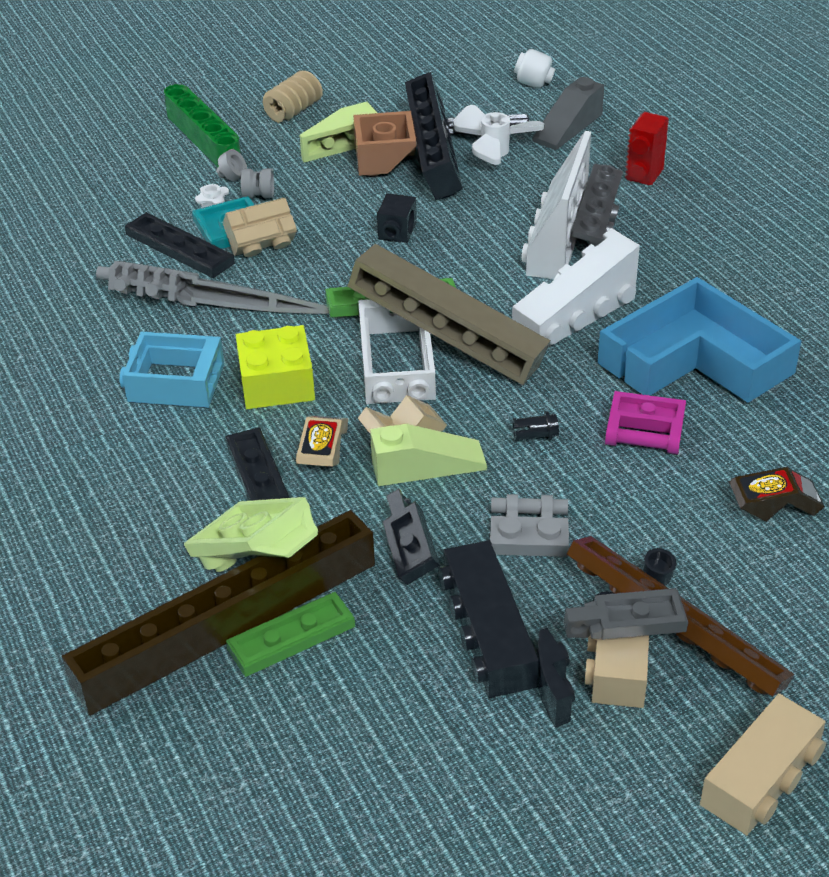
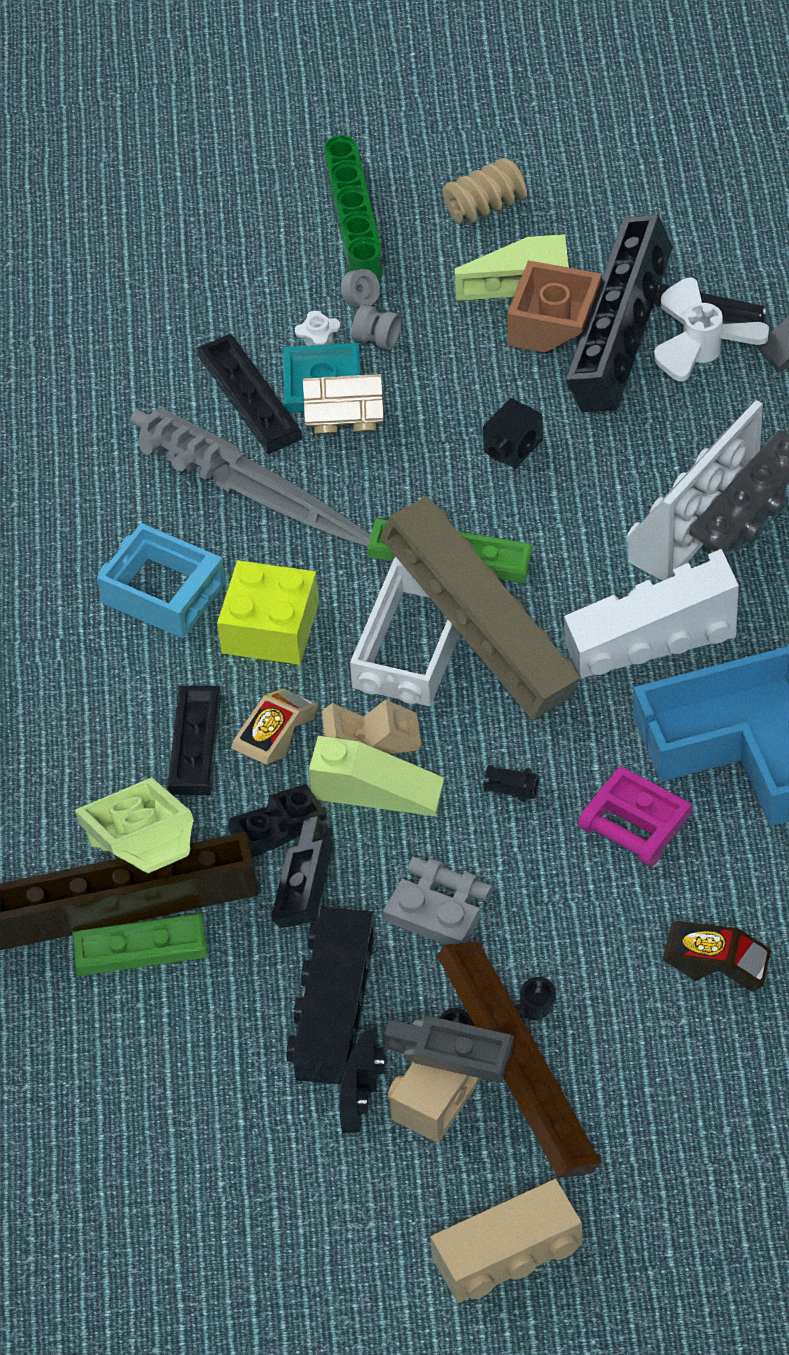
camera: 25 degrees right, 10 degrees up
(365, 499) = (278, 821): none -> black slope

